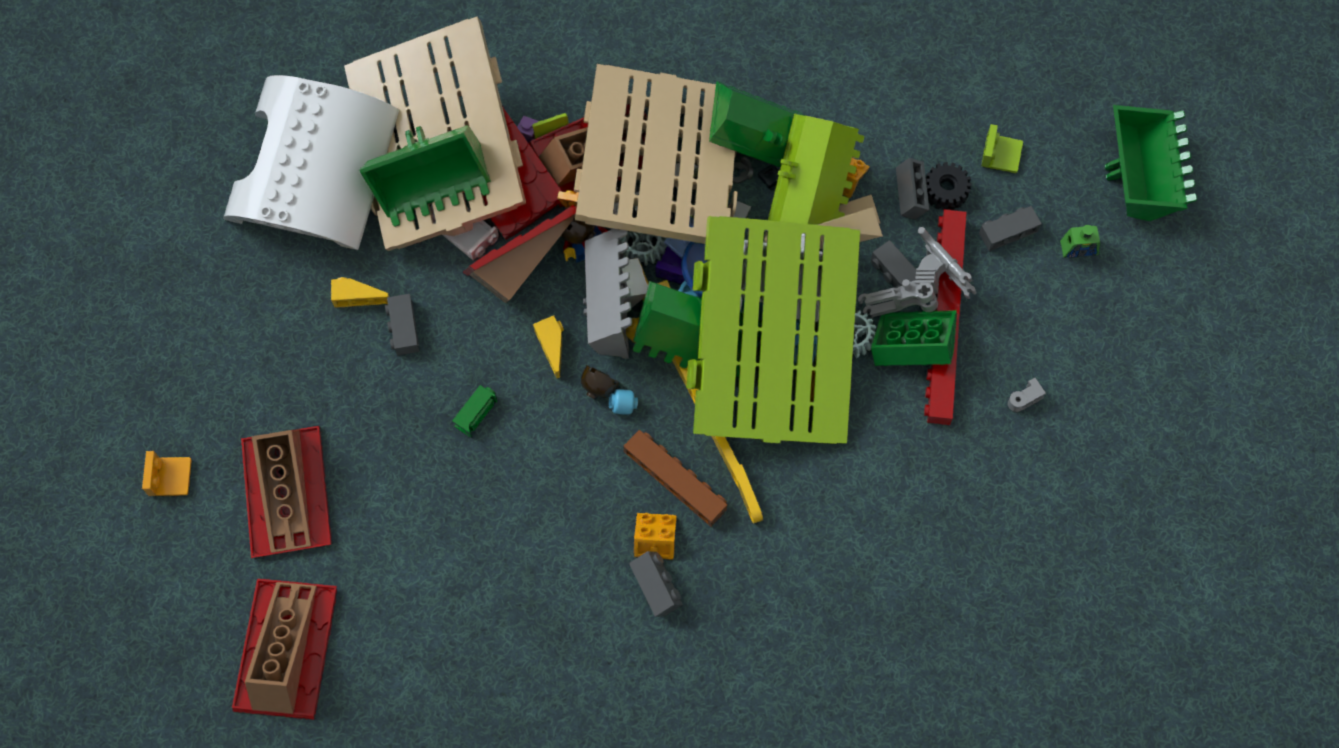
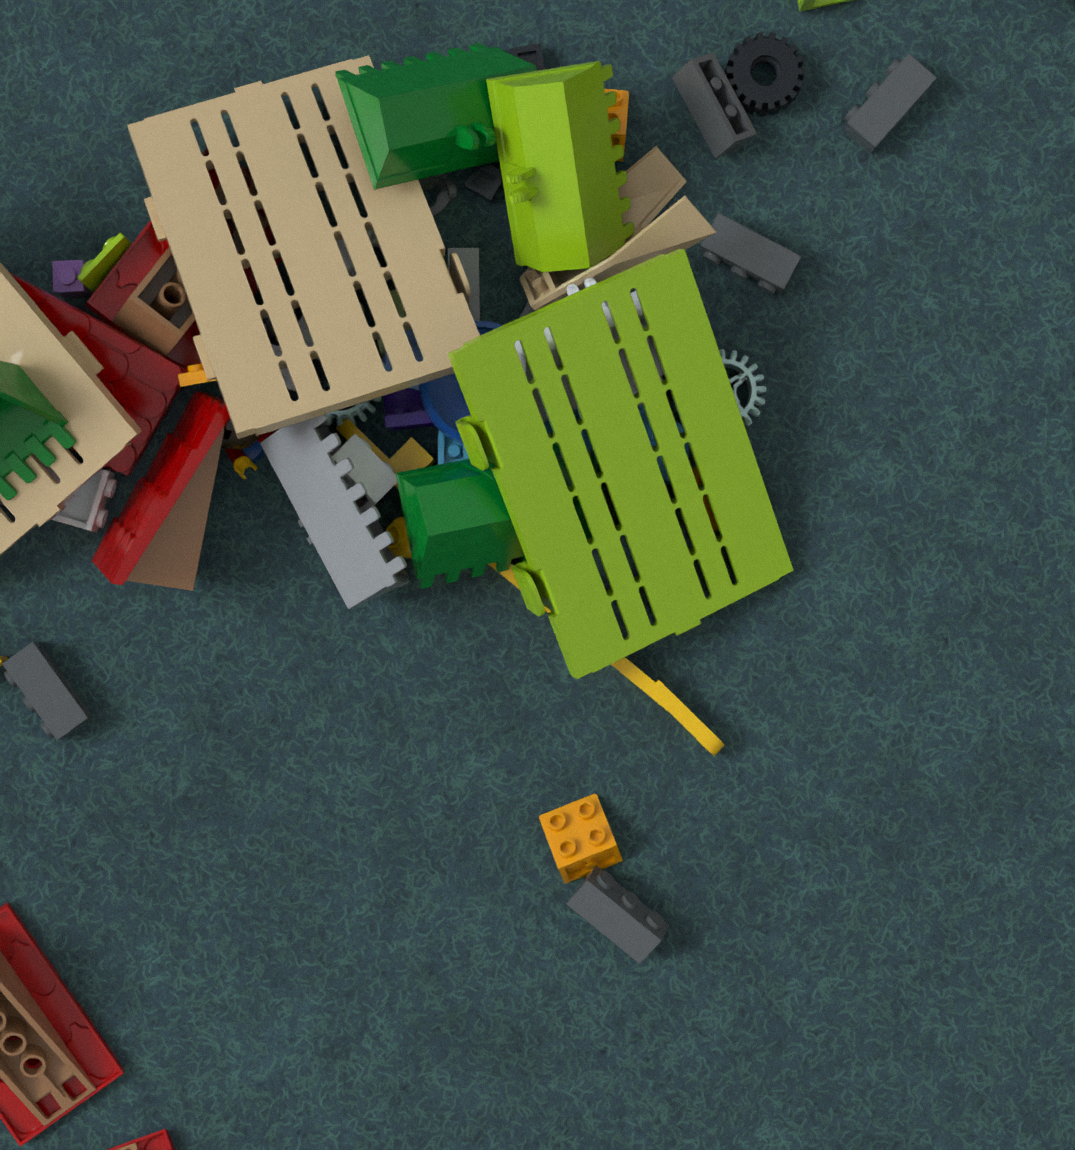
camera: 25 degrees left, 20 degrees up
(475, 410) = (226, 775): green window -> none
(550, 337) = (283, 612): yellow slope -> none
(598, 383) = (386, 648): dark brown cylinder -> none
(623, 402) = (437, 659): medium azure head -> none
(675, 478) = (570, 741): dark orange brick -> none
(915, 338) = (825, 360): green slope -> none
(924, 287) = (806, 265): light grey piece -> none
(942, 377) = (852, 294): red brick -> none
(1020, 400) = (1024, 374): light grey leg -> none
(1081, 241) = (1008, 79): bright green torso -> none

